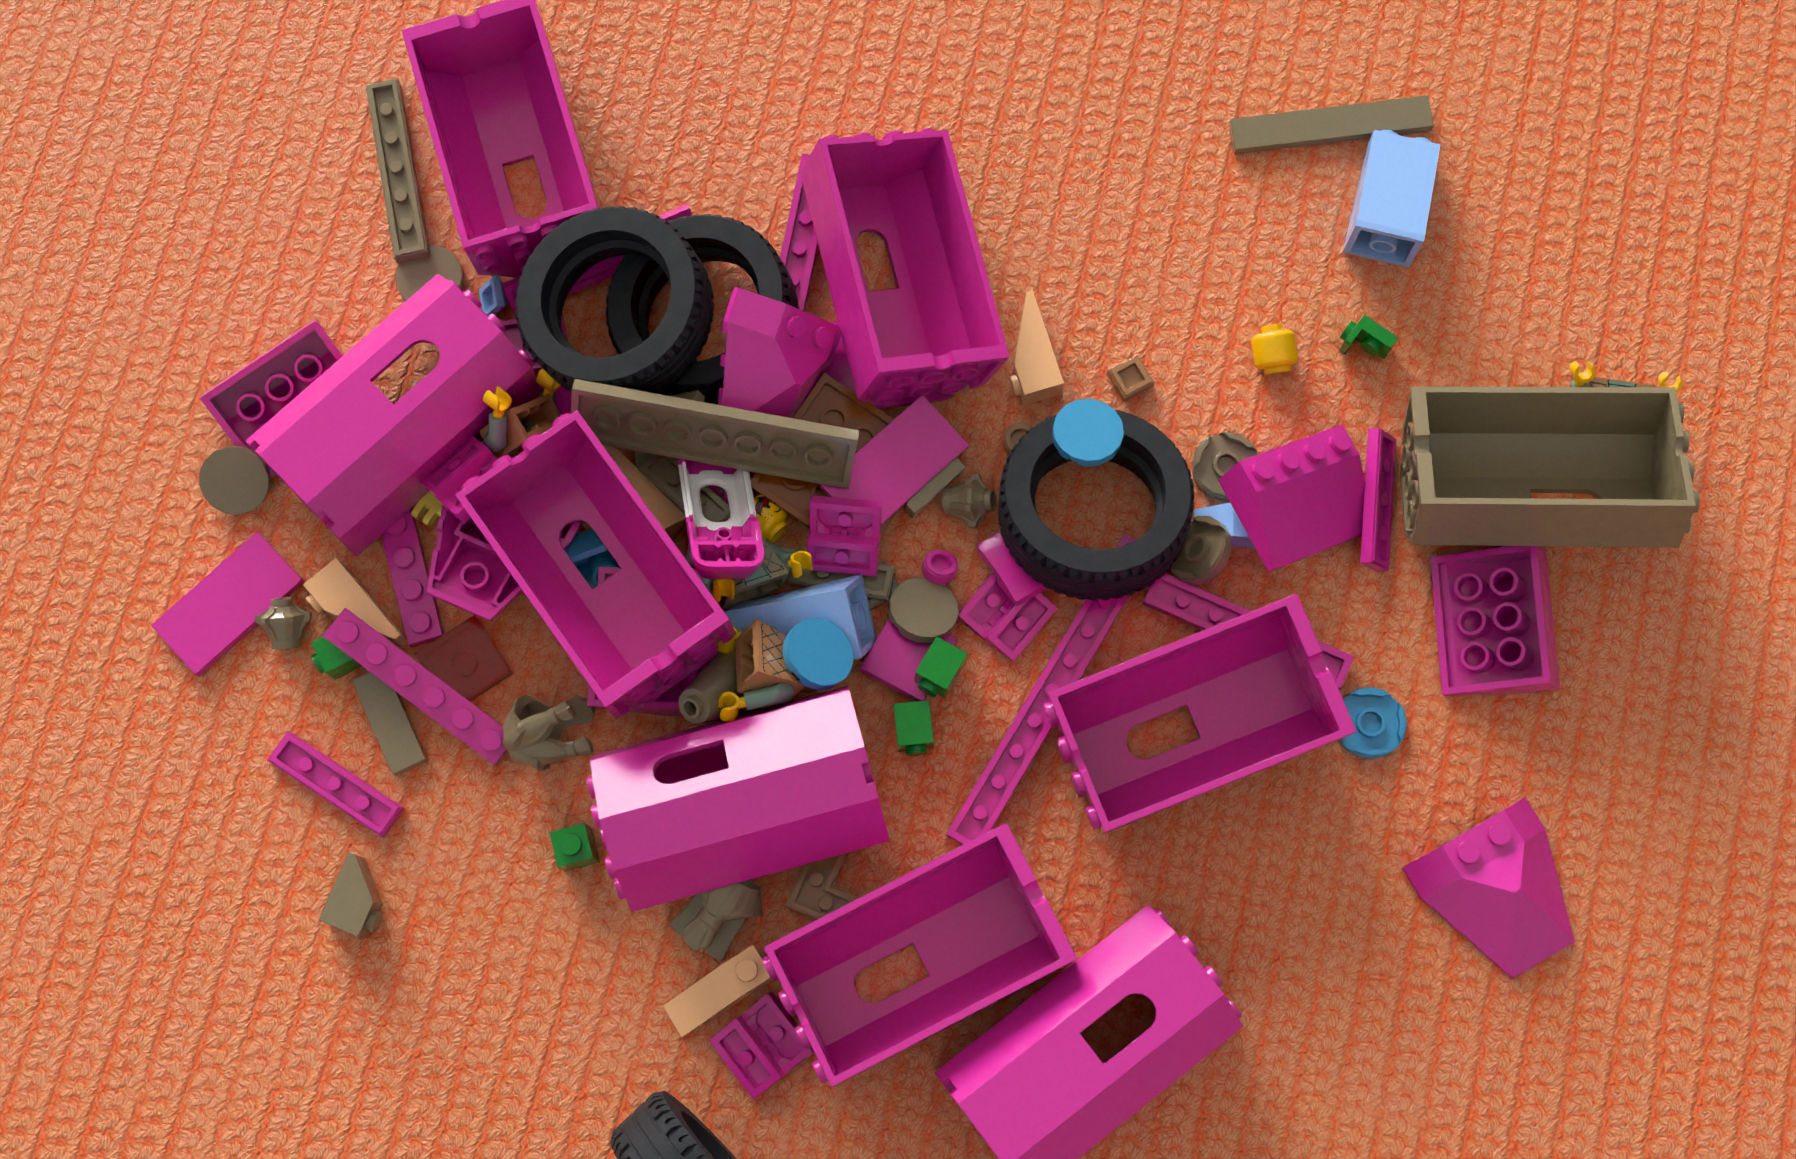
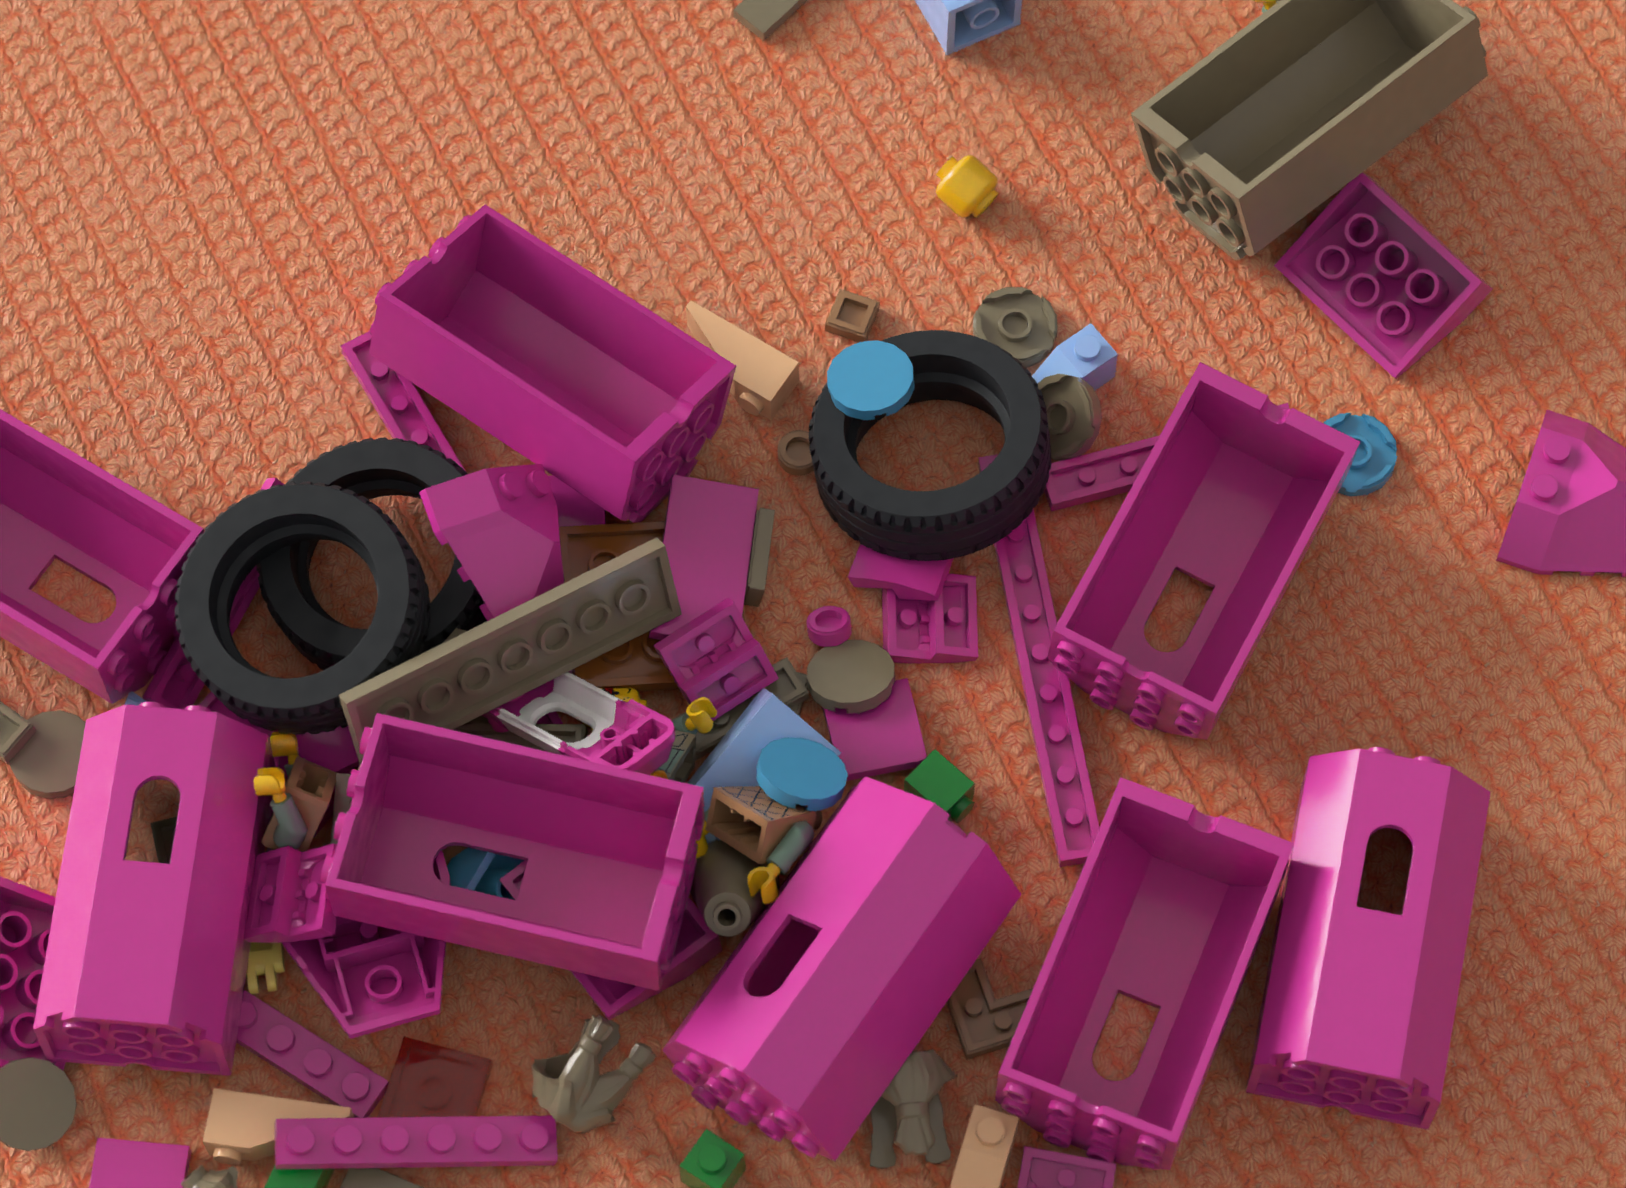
camera: 45 degrees left, 10 degrees down
(939, 668) = (919, 710): green brick -> none
(969, 501) = (803, 541): dark tan rock -> none
(1299, 497) = (1114, 294): dark pink slope -> none
(1371, 335) = (1043, 108): green bracket -> none
(1378, 500) = (1183, 248): dark pink tile -> none

